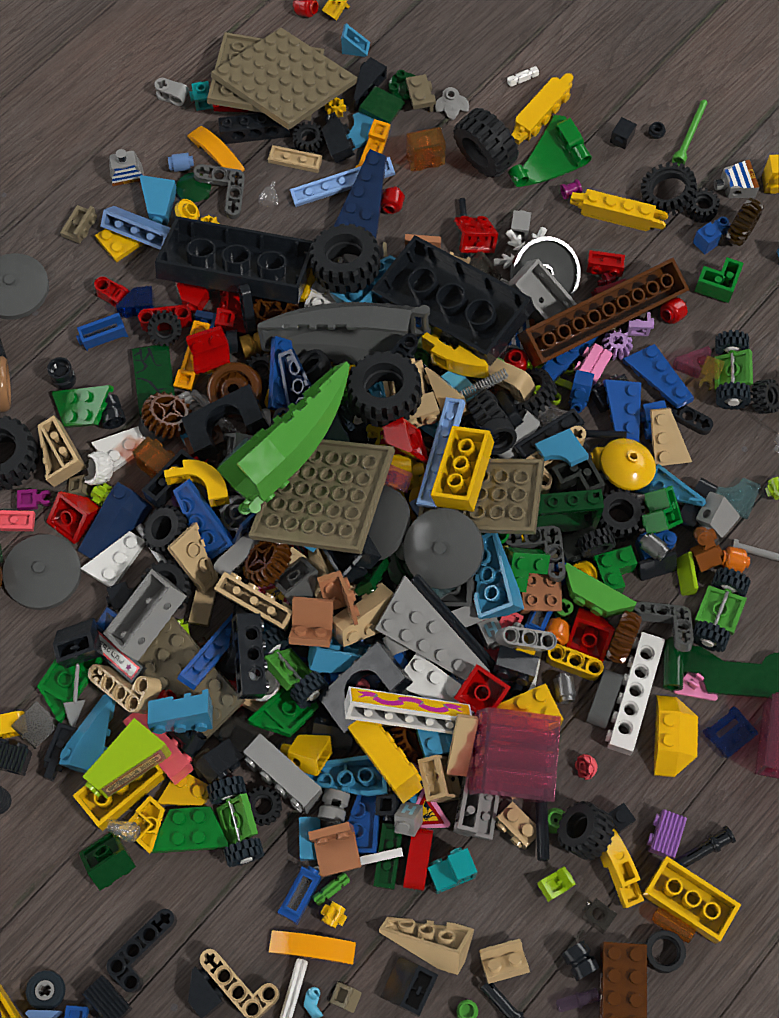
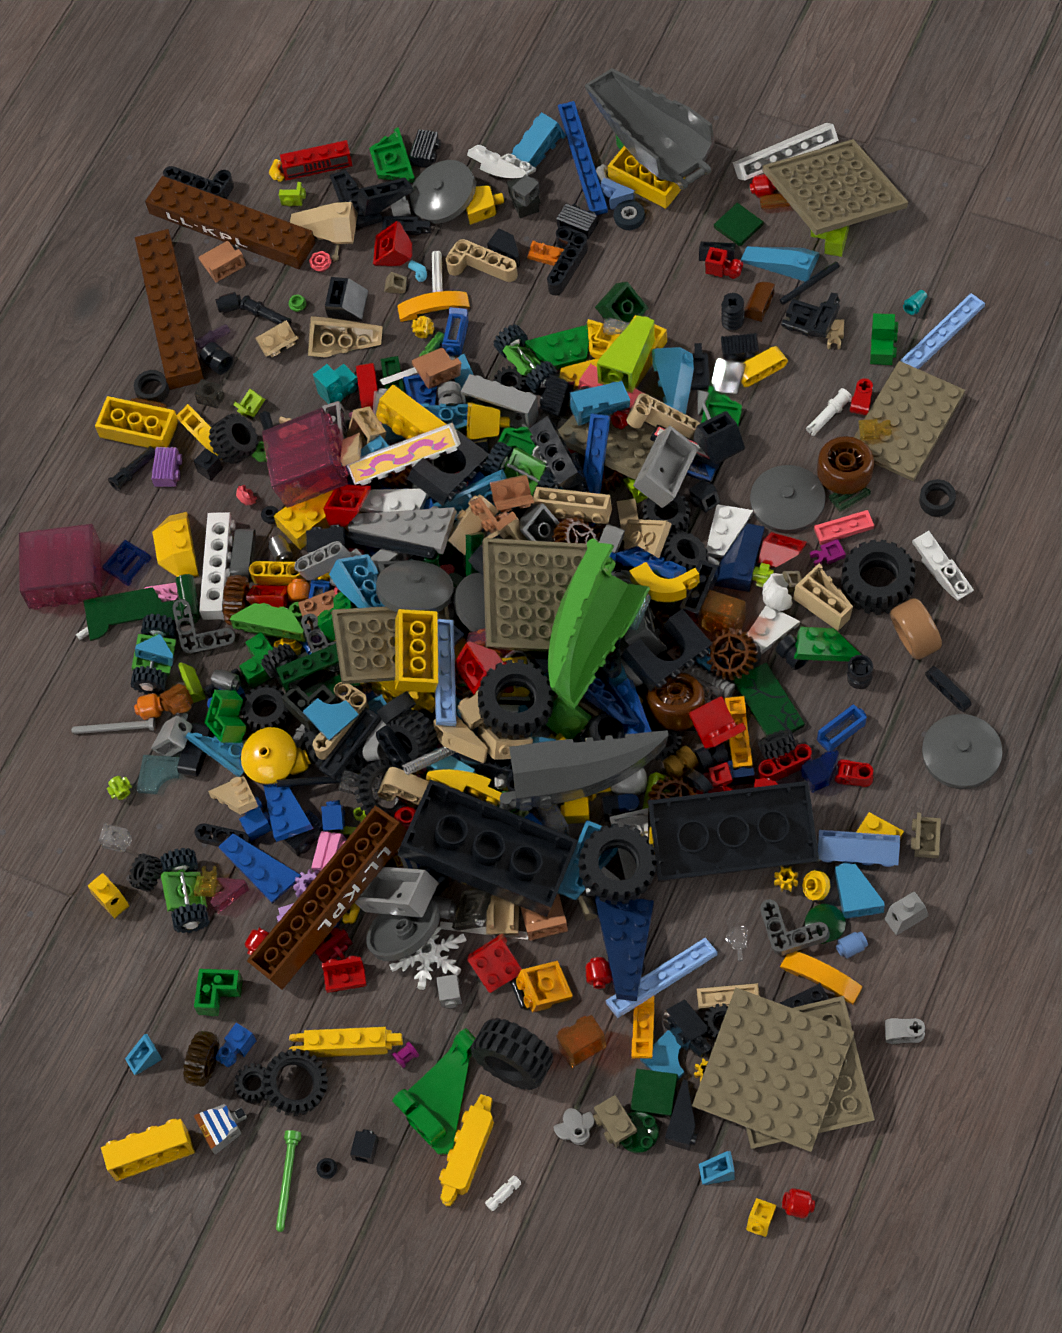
camera: 170 degrees right, 5 degrees down
(159, 971) = (544, 253): none -> orange plate
(200, 95) = (866, 1033): teal brick -> none
(441, 204) = (543, 986): none -> light orange plate
(567, 743) = (269, 518): none -> black plate
(719, 603) = (155, 650): none -> dark azure slope

